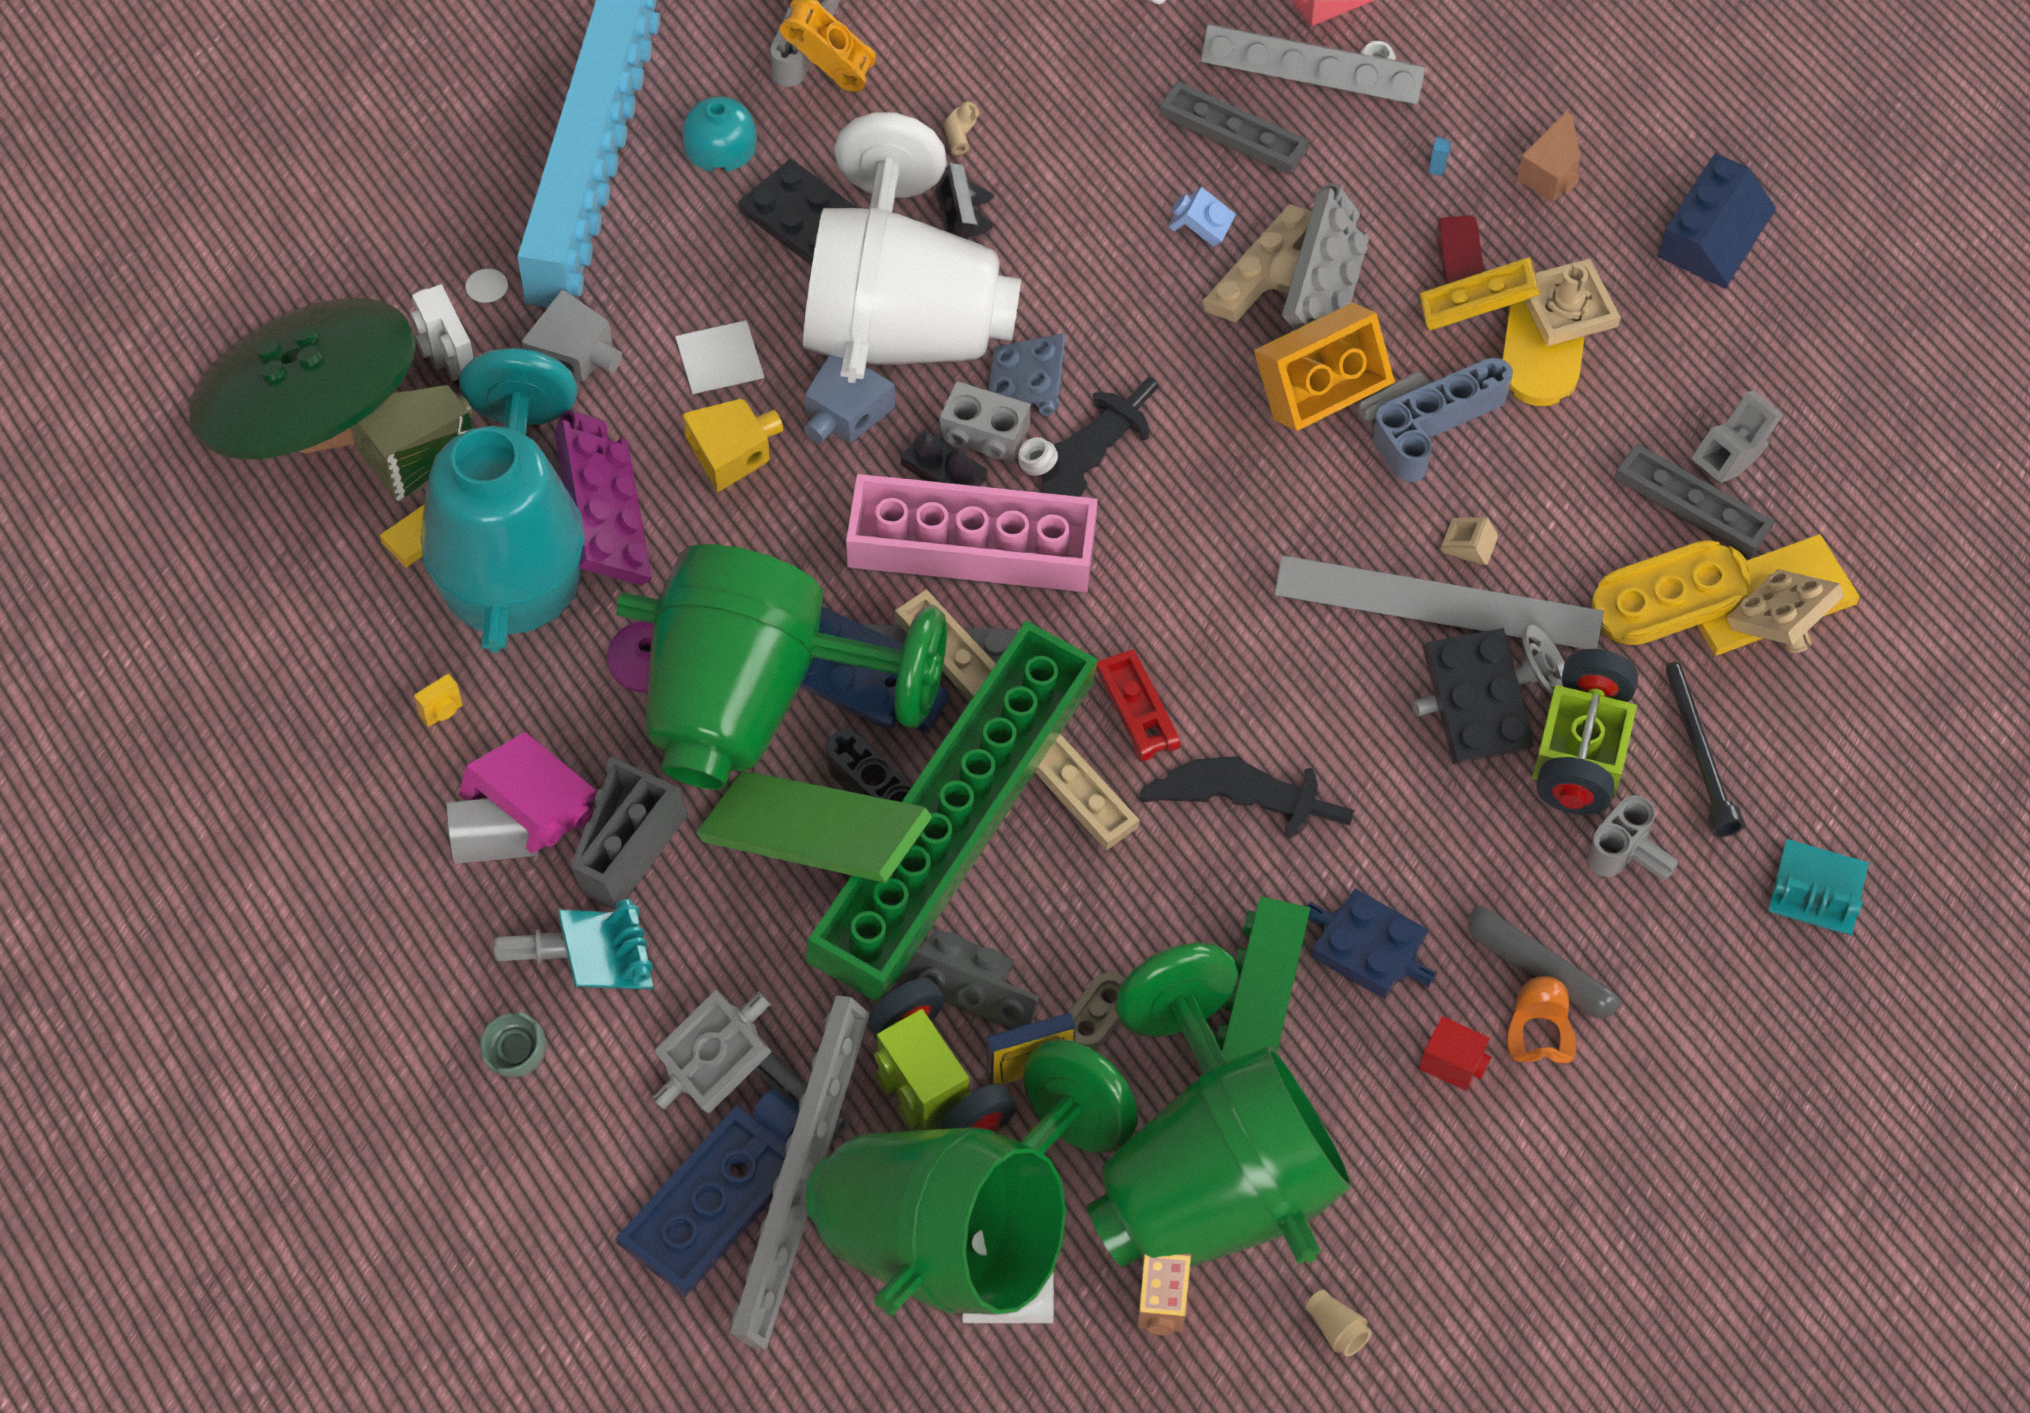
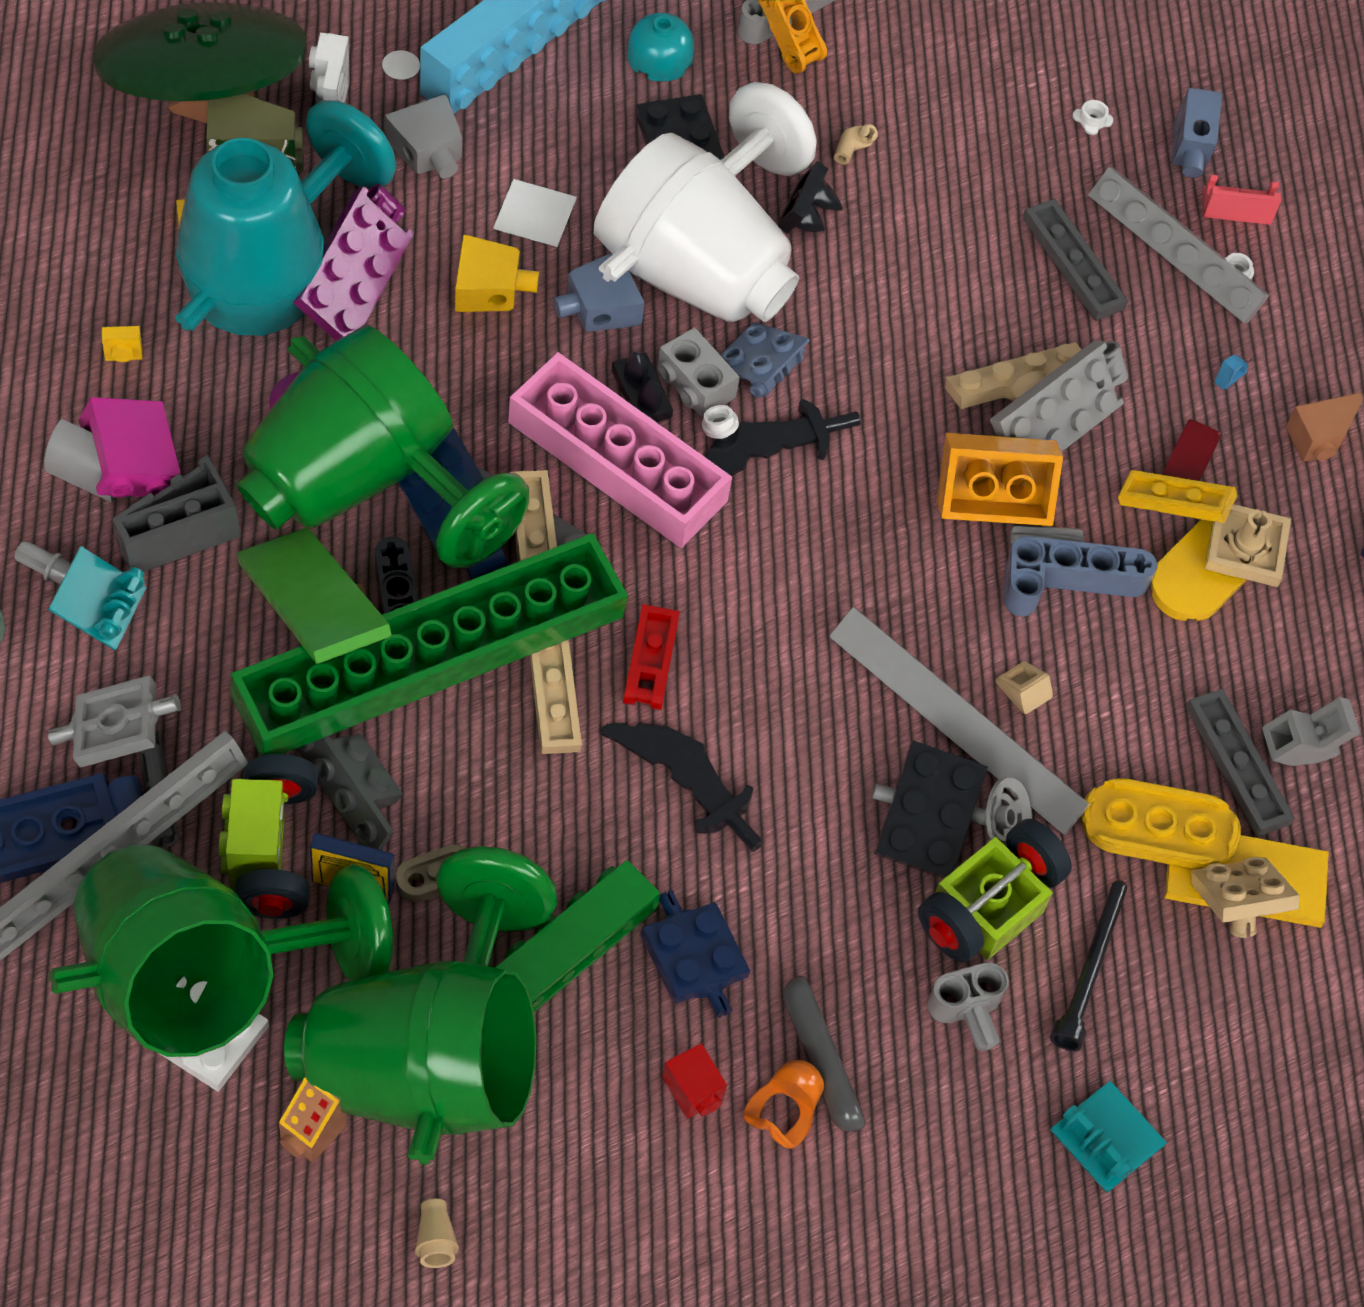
camera: 25 degrees right, 0 degrees up
(1203, 215) = (996, 312): light blue bracket -> none

